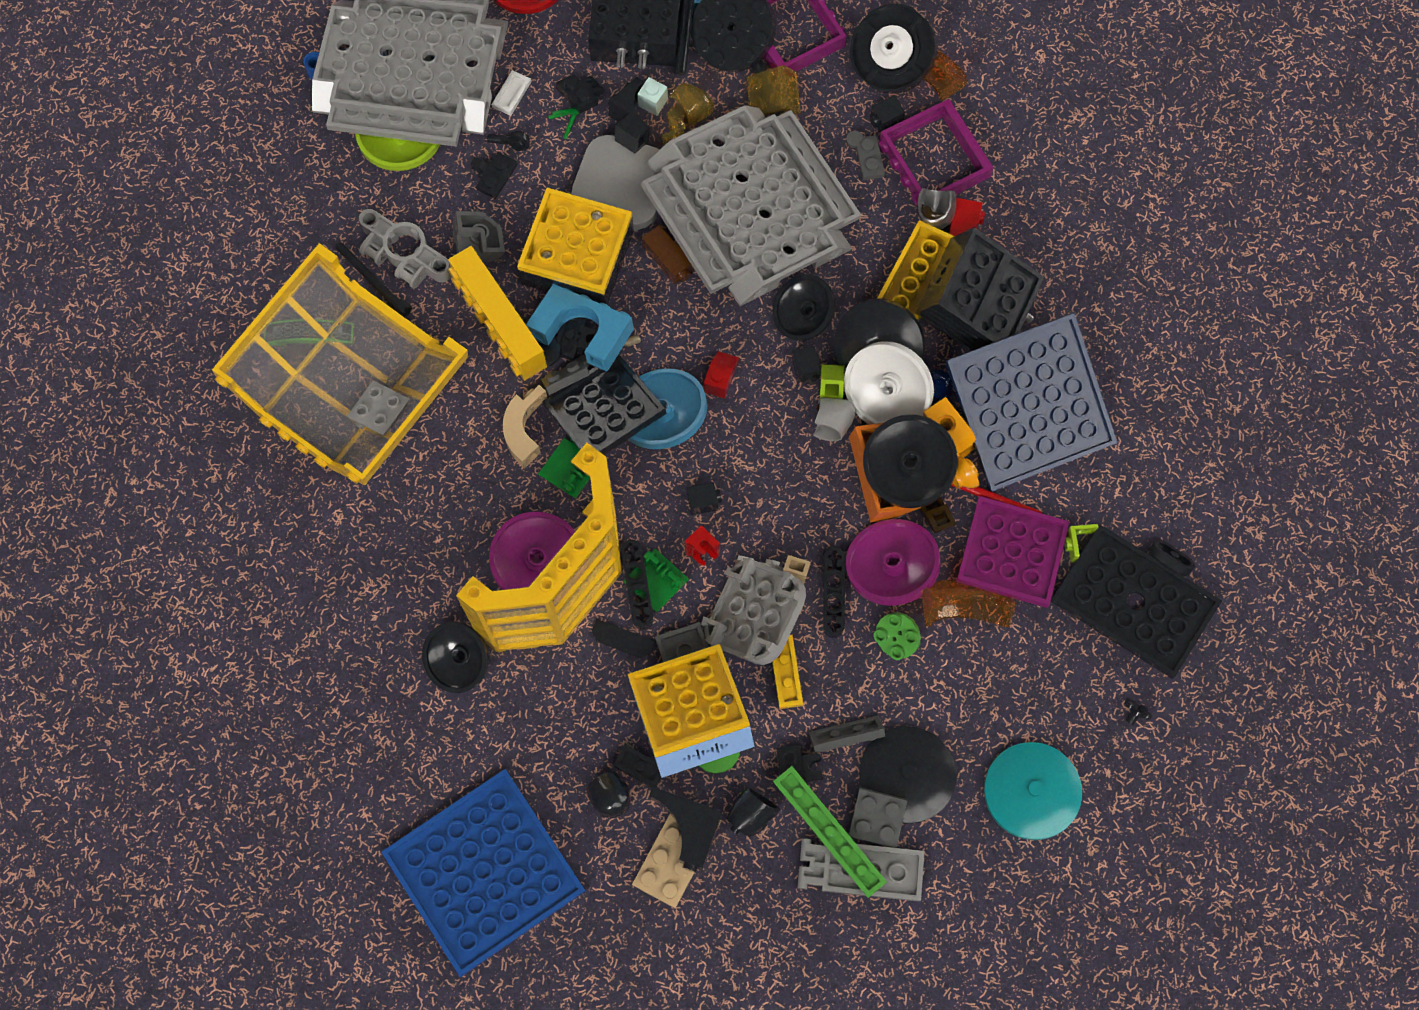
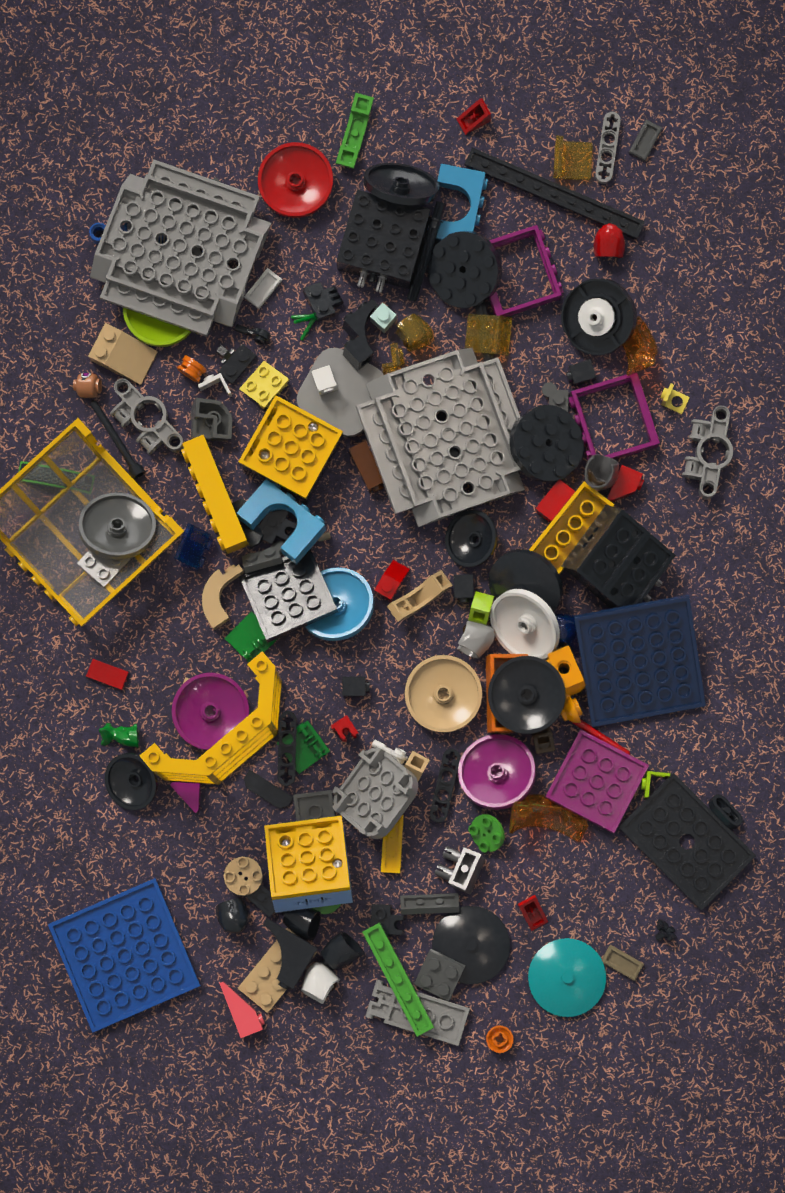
camera: 15 degrees right, 10 degrees up
(328, 226) = (87, 385): none -> nougat head
(362, 186) = (122, 354): none -> tan slope
(387, 365) = (117, 526): none -> dark grey dish
(405, 541) = (107, 674): none -> red tile
(436, 606) = (124, 735): none -> green animal
(445, 186) = (191, 369): none -> orange wheel
(472, 195) = (211, 380): none -> white bracket
(481, 377) = (193, 547): none -> clear blue slope
(528, 659) = (189, 793): none -> magenta slope
(531, 188) = (264, 384): none -> light yellow hinge
(600, 169) = (324, 380): none -> white bracket
(619, 734) = (236, 882): none -> tan plate
(646, 915) = (243, 1014): none -> coral slope
(697, 784) = (303, 922): none -> black helmet
(732, 856) = (319, 982): none -> white piece
(759, 382) = (420, 596): none -> tan arch
(809, 485) = (443, 693): none -> tan dish
(866, 189) = (546, 443): none -> black piece
(882, 686) = (466, 870): none -> flat silver brick
(888, 251) = (554, 500): none -> red hinge
(969, 882) = (499, 1039): none -> orange wheel
(973, 719) = (532, 912): none -> red slope
(989, 121) = (667, 396): none -> light yellow bracket
(1044, 189) = (708, 472): none -> light grey piece
(1095, 759) = (622, 962): none -> dark tan tile

